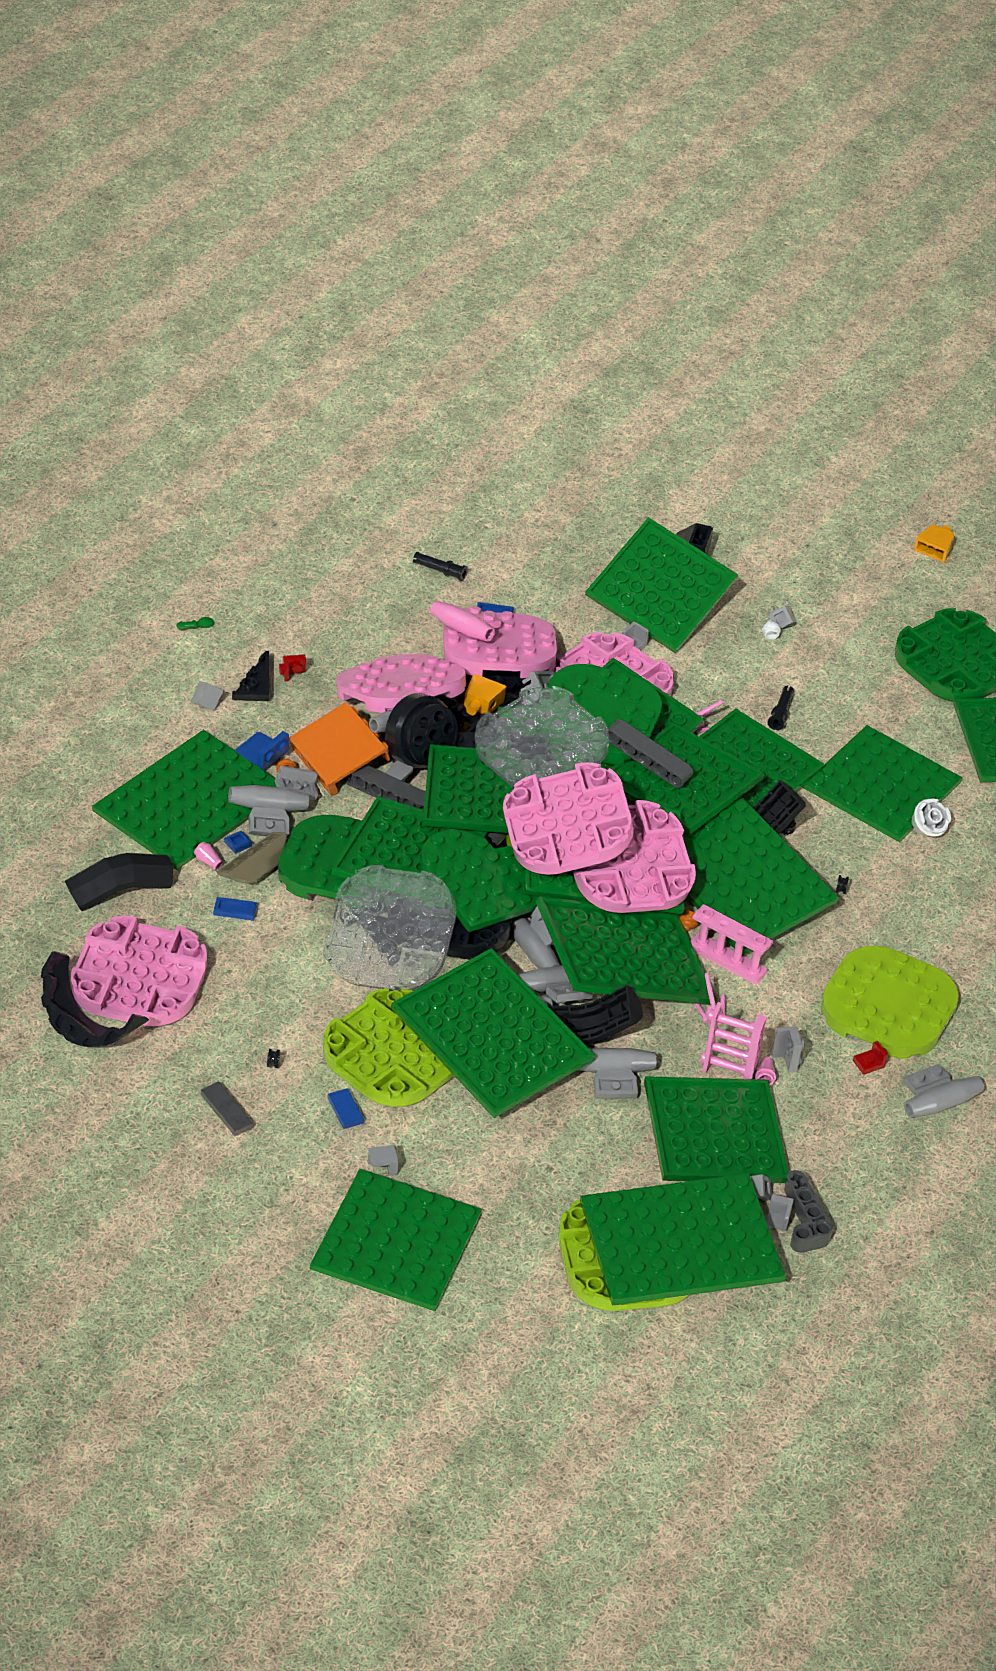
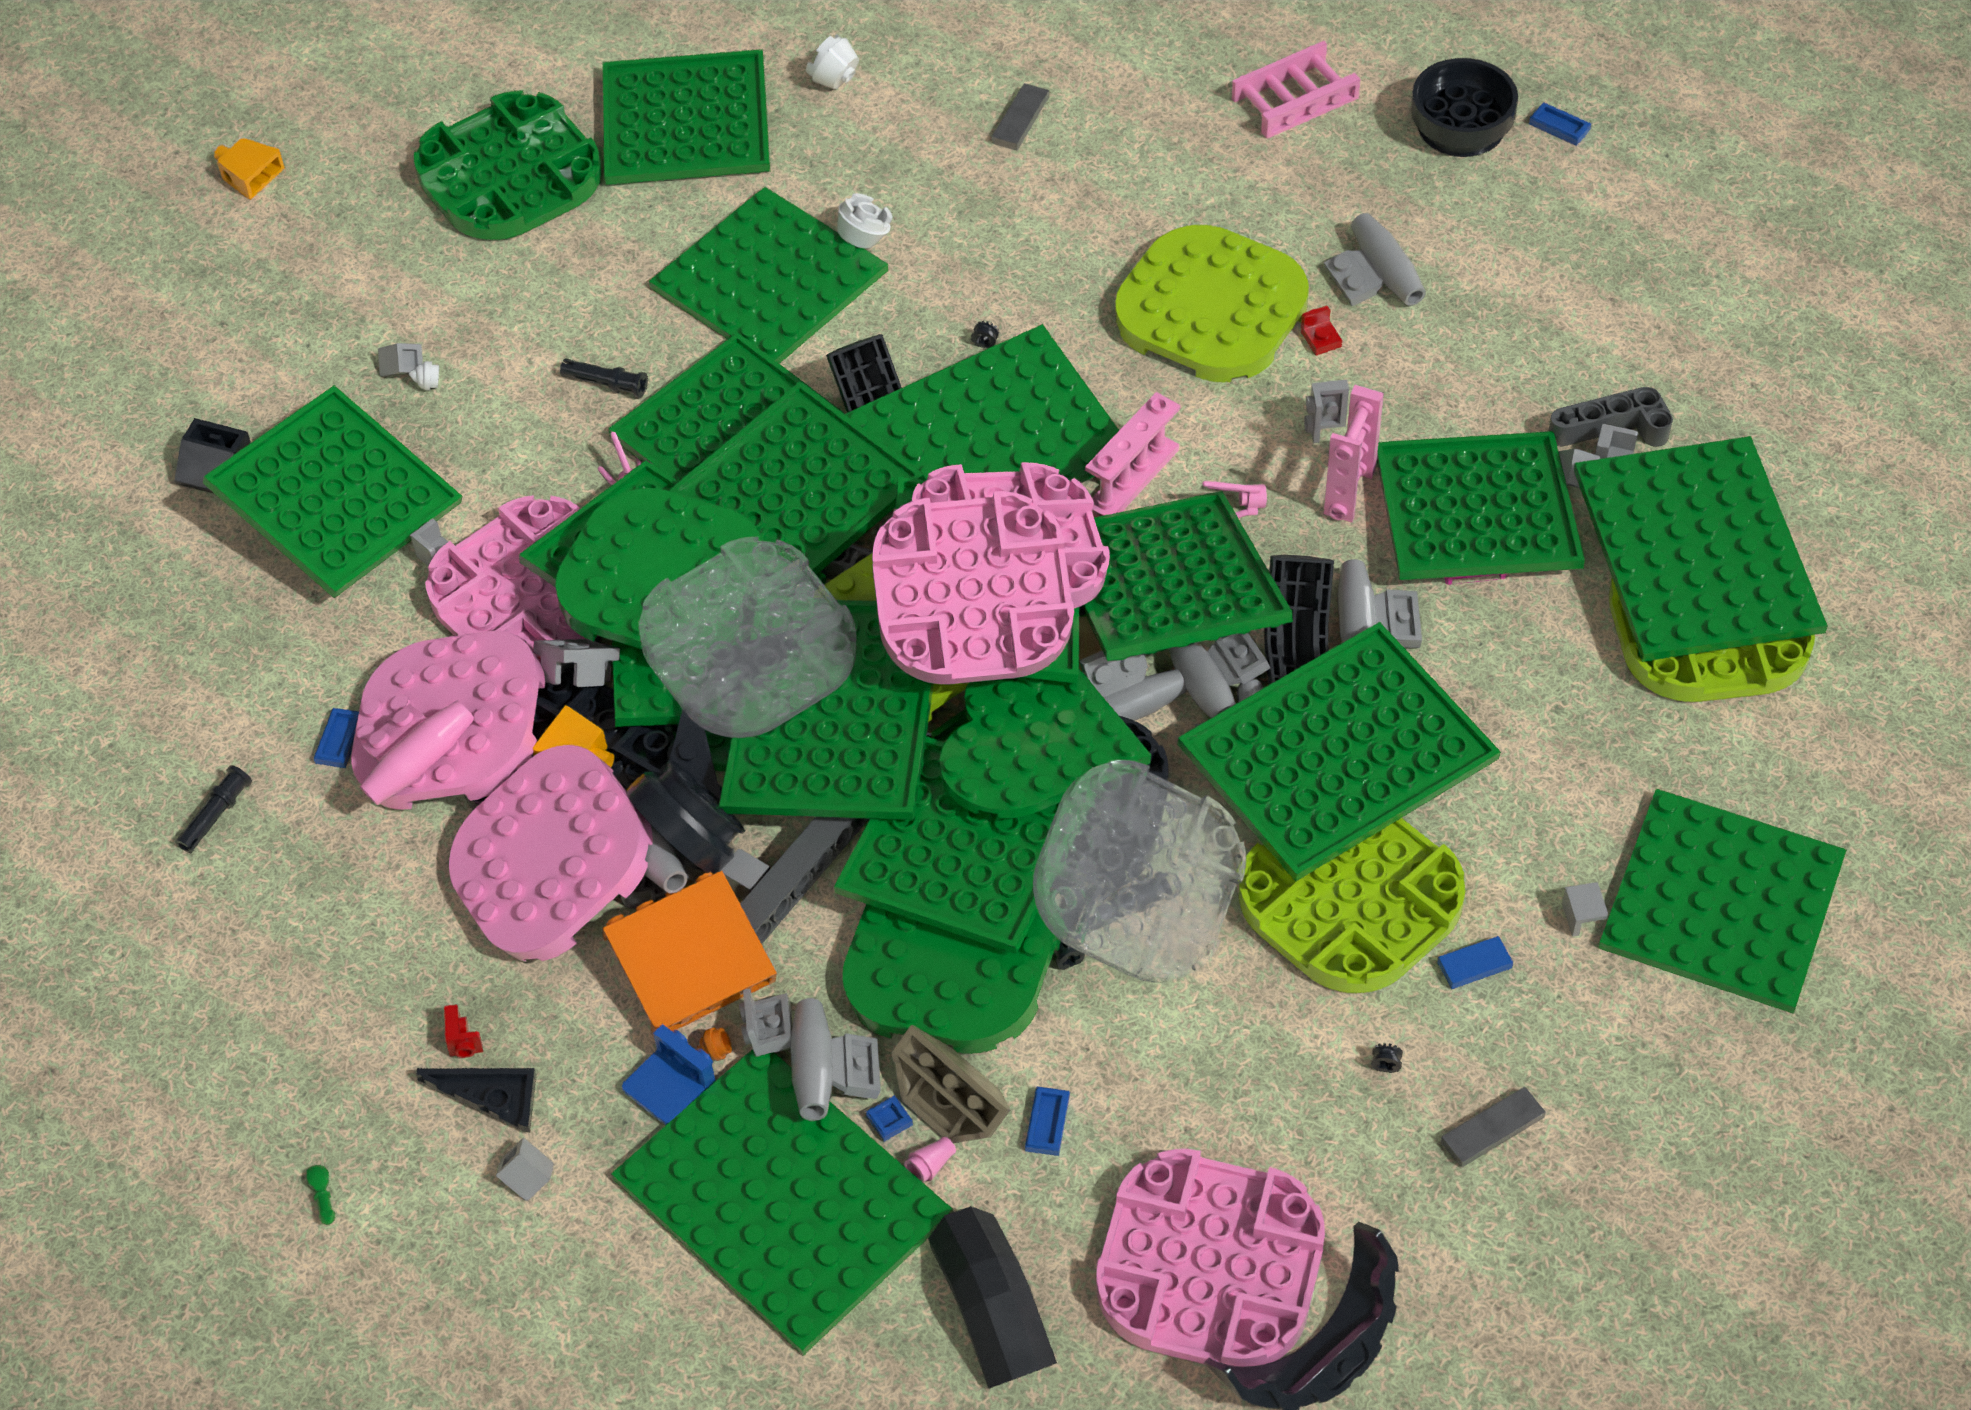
camera: 80 degrees left, 10 degrees up
(649, 753) = (776, 502): dark grey beam -> none

